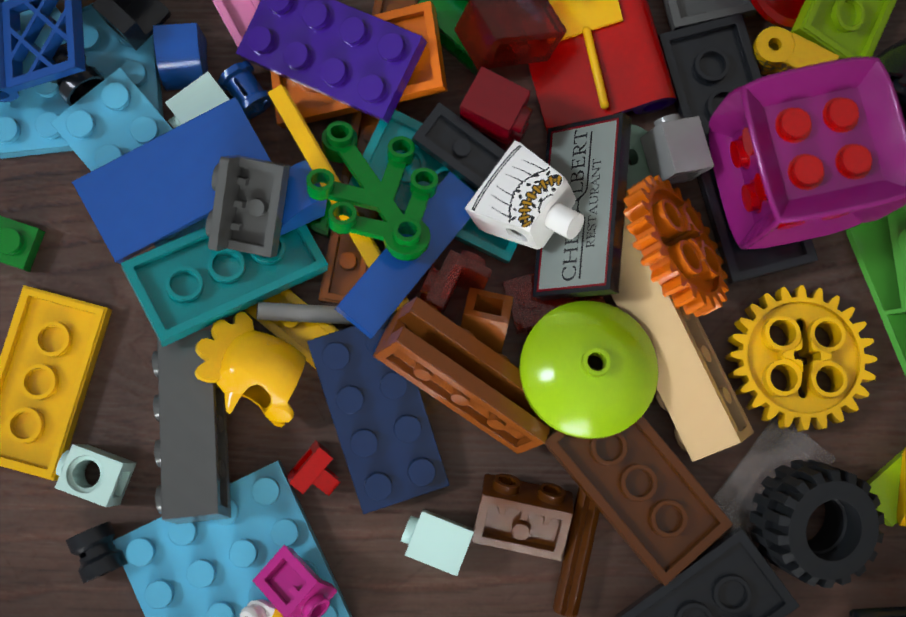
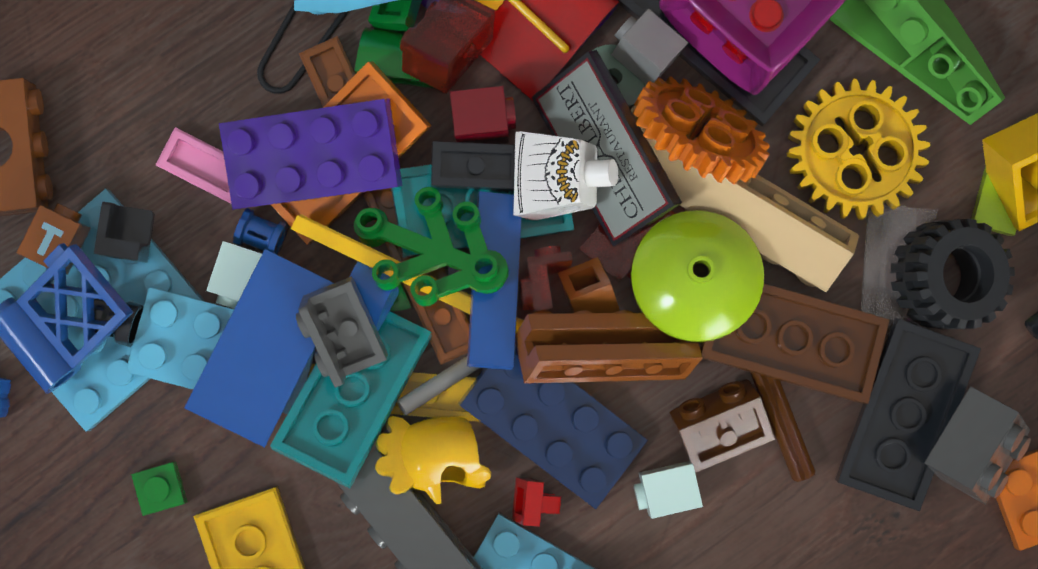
camera: 35 degrees left, 5 degrees up
(180, 54) = (187, 241): blue brick -> none

